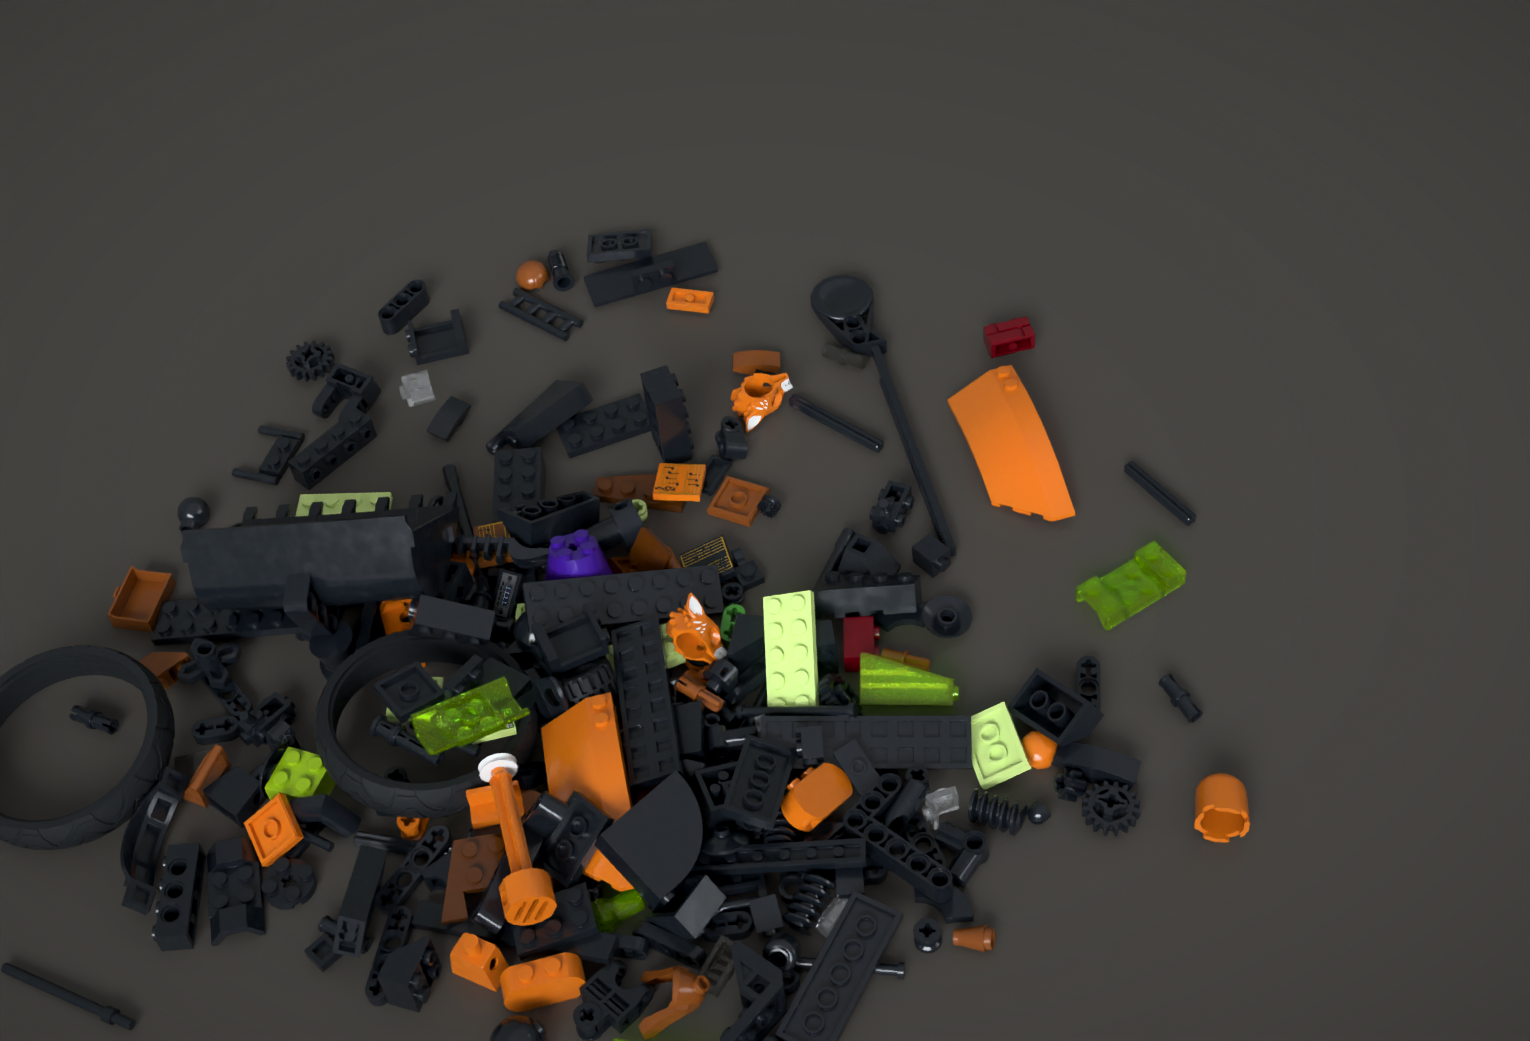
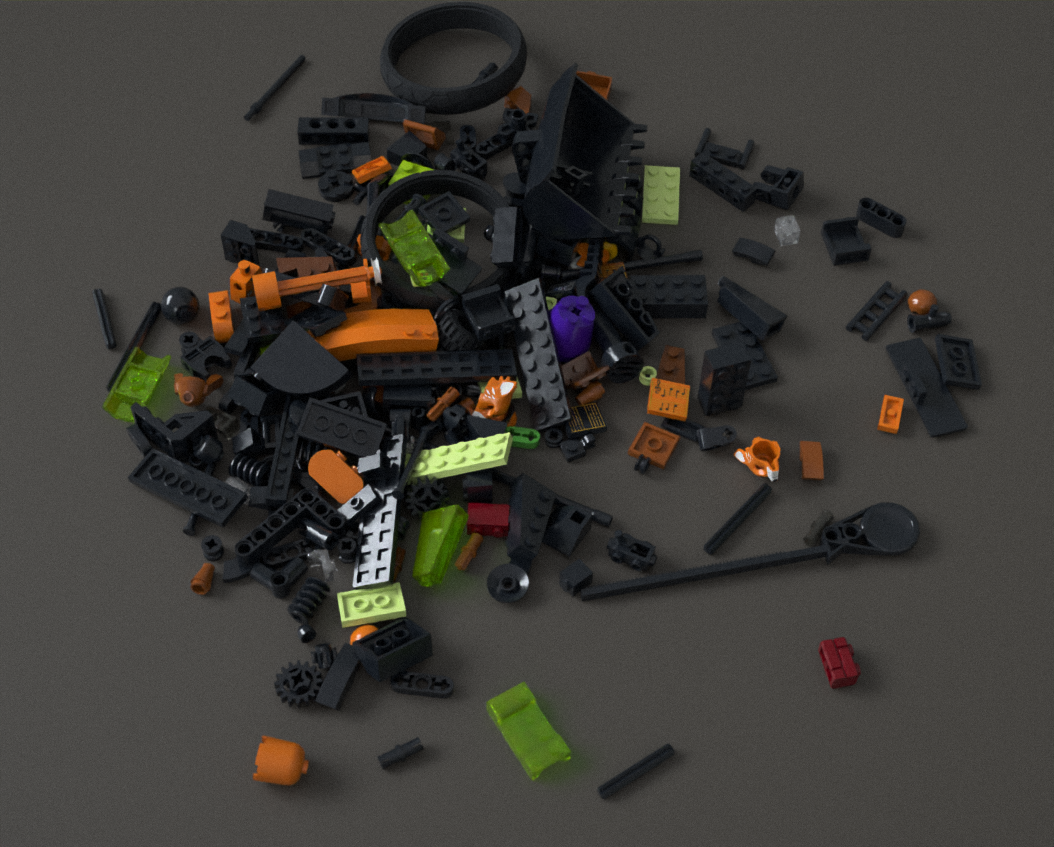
camera: 85 degrees right, 5 degrees up
(193, 513) = (664, 108): black piece -> none
(310, 361) = (820, 163): black gear -> none
(1011, 445) = (698, 649): orange slope -> none

